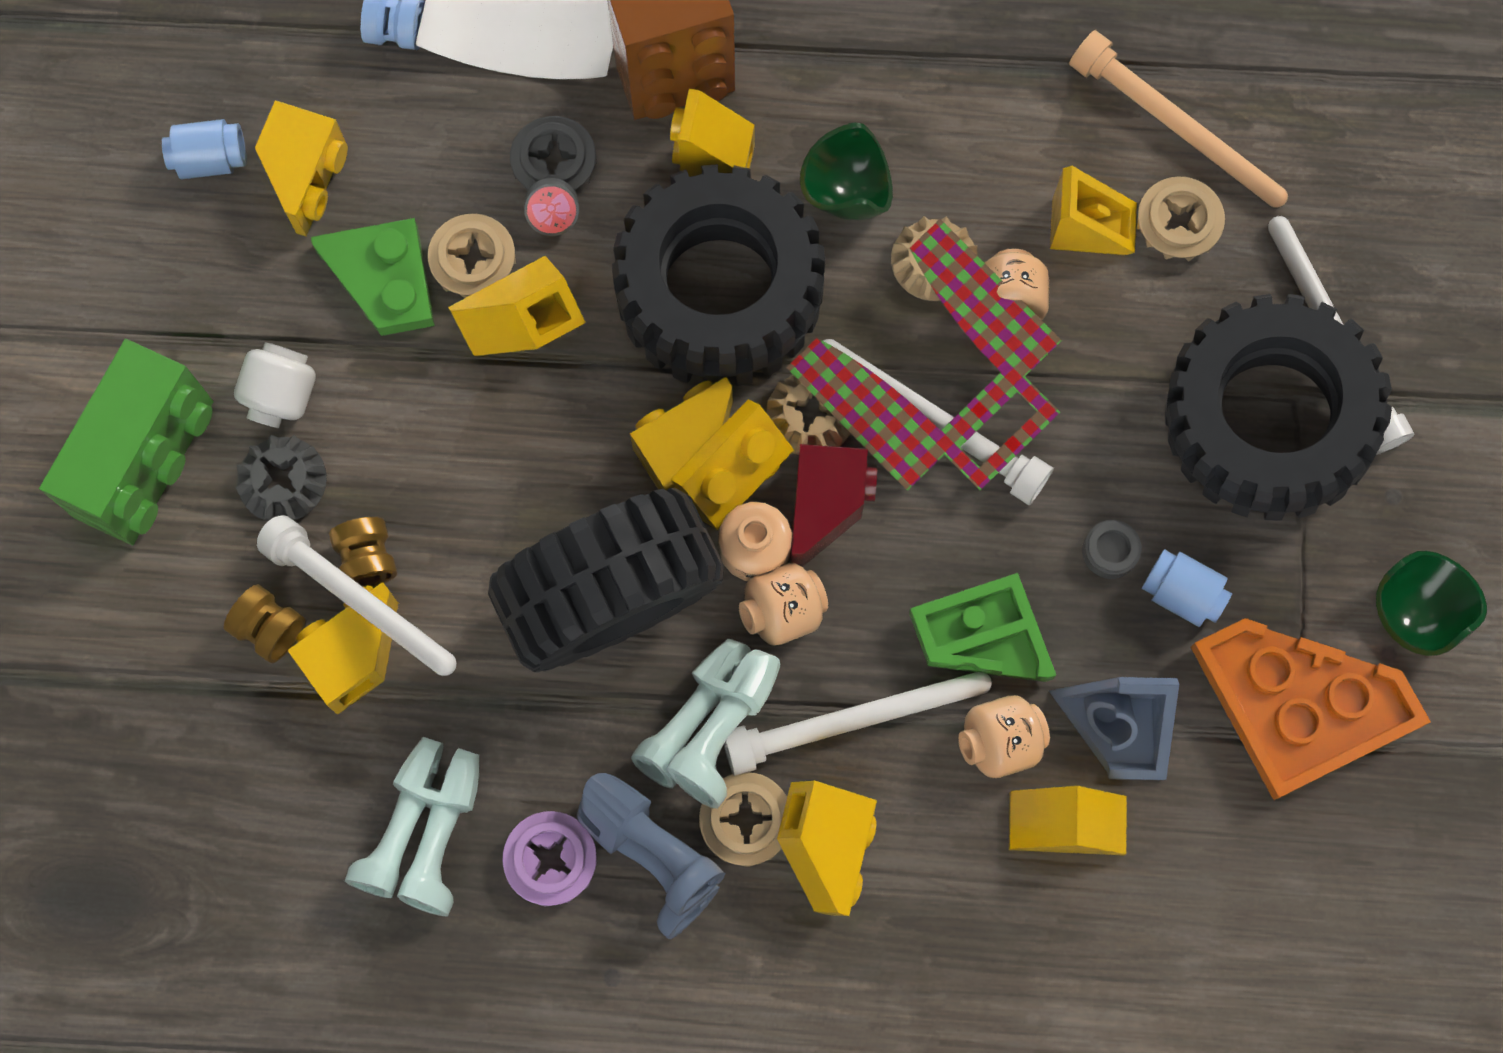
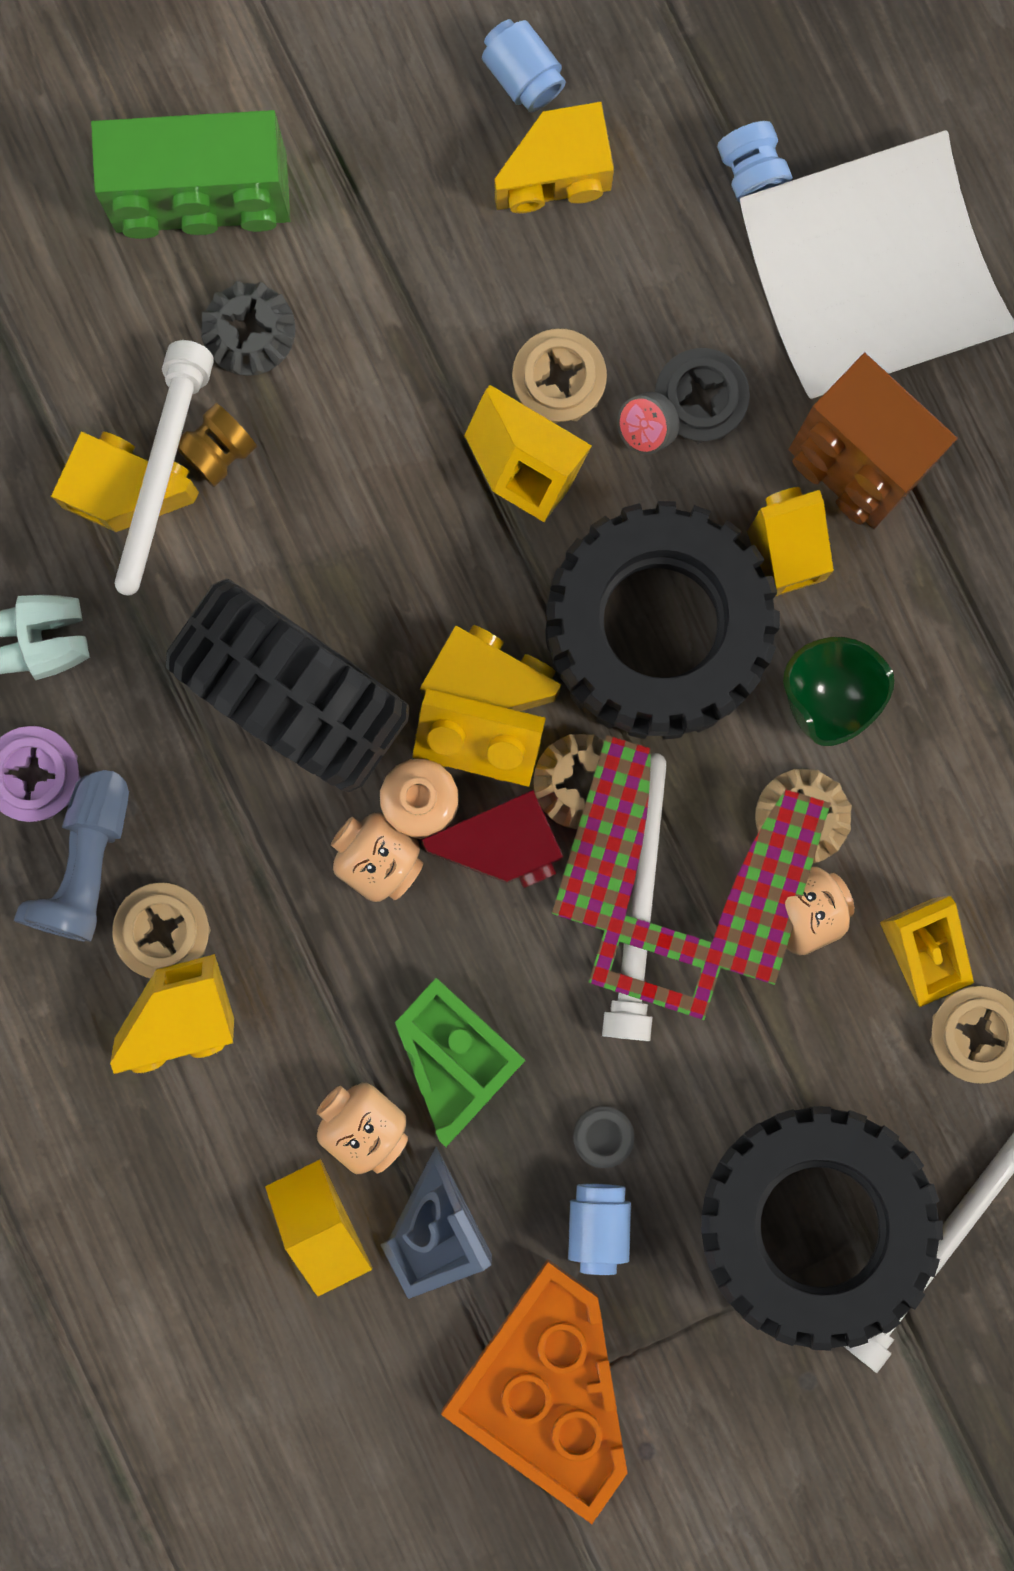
camera: 60 degrees right, 10 degrees up
(264, 623) = (102, 394): pearl gold wheel -> none
(274, 384) = (329, 269): white head -> none
(382, 273) = (496, 302): bright green wing -> none
(735, 683) = (279, 856): light aqua piece -> none
(749, 747) = (228, 899): white piece -> none
(1429, 603) = (709, 1471): dark green helmet -> none

